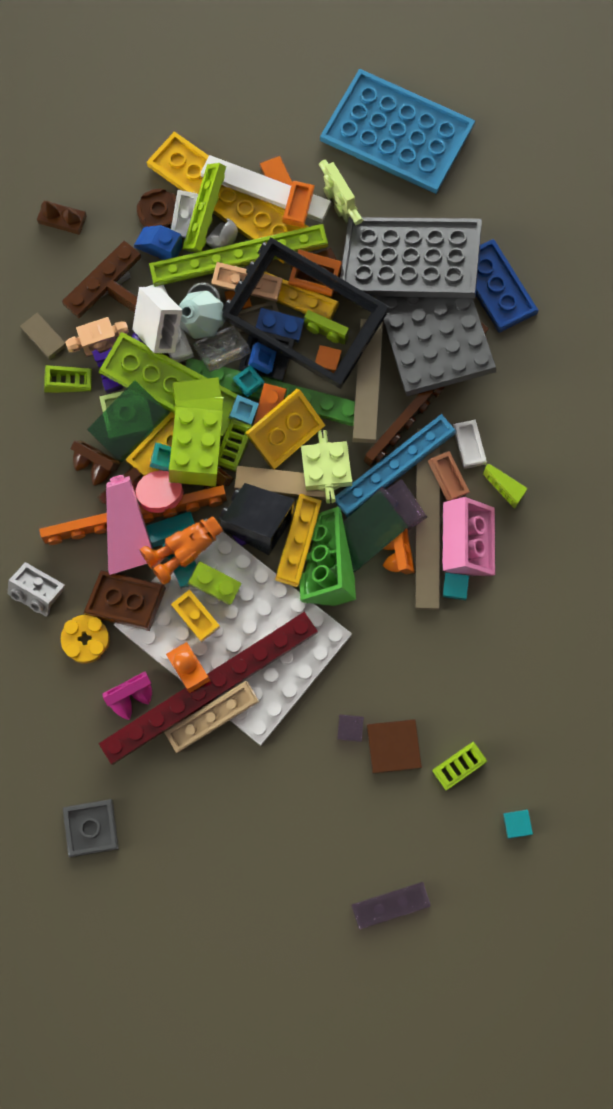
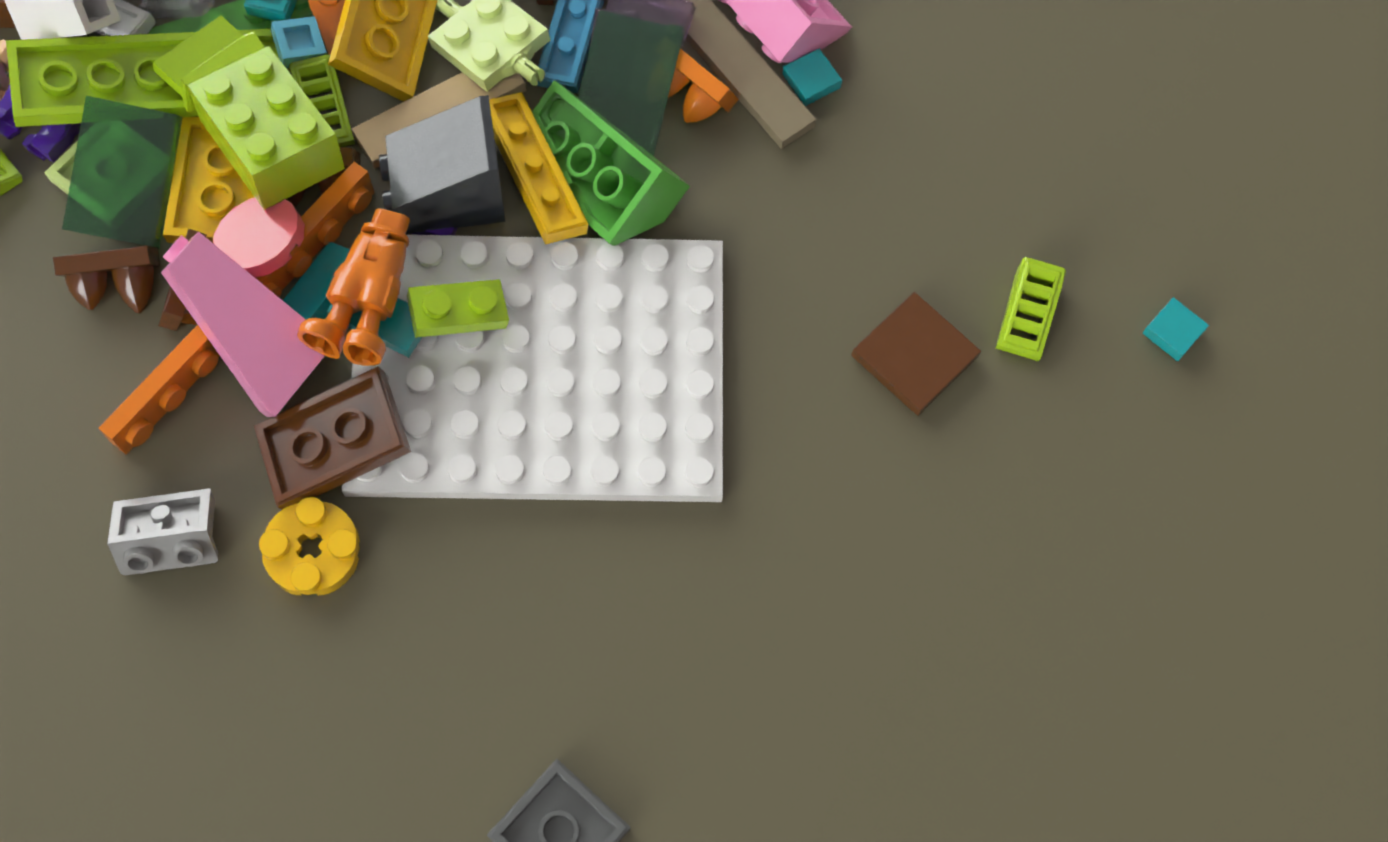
camera: 45 degrees left, 5 degrees down
(119, 698) = (440, 591): dark pink tile -> none
(160, 457) = (221, 185): teal plate -> none
(188, 667) = (519, 458): orange tile -> none
(195, 615) = (466, 376): yellow plate -> none
(211, 716) = (614, 509): tan tile -> none
(221, 680) = (570, 480): dark red plate -> none
(350, 728) = (832, 374): clear purple tile -> none
(390, 905) = (1106, 580): clear purple tile -> none

